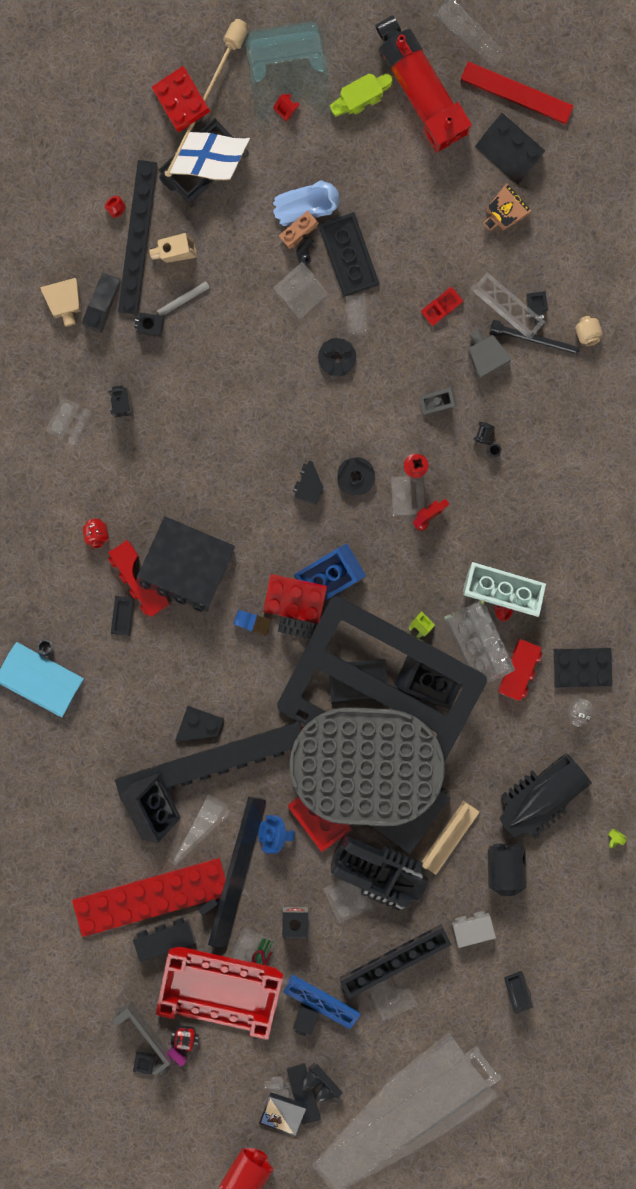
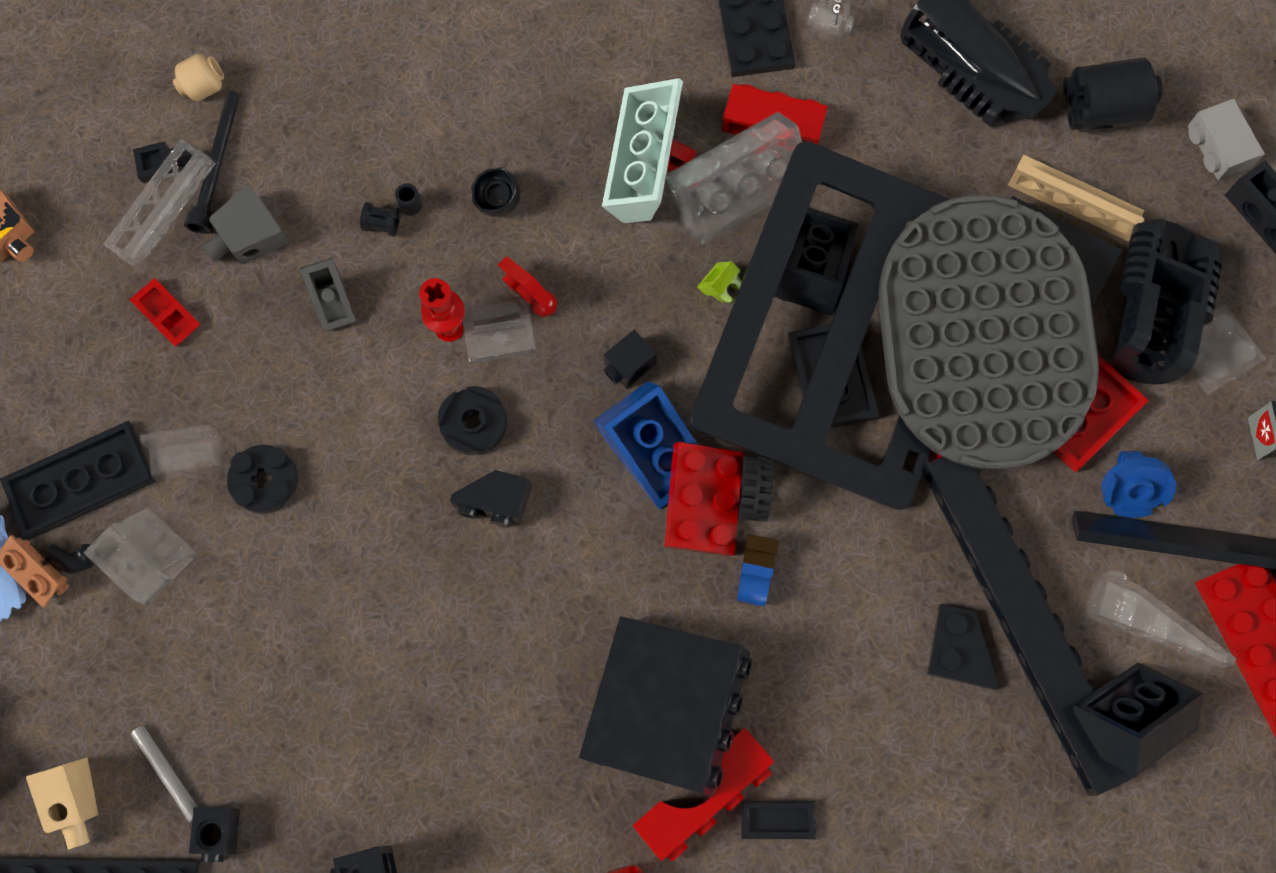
camera: 90 degrees left, 15 degrees down
(380, 567) = (629, 359): none -> black brick
(497, 503) = (498, 185): none -> black hair

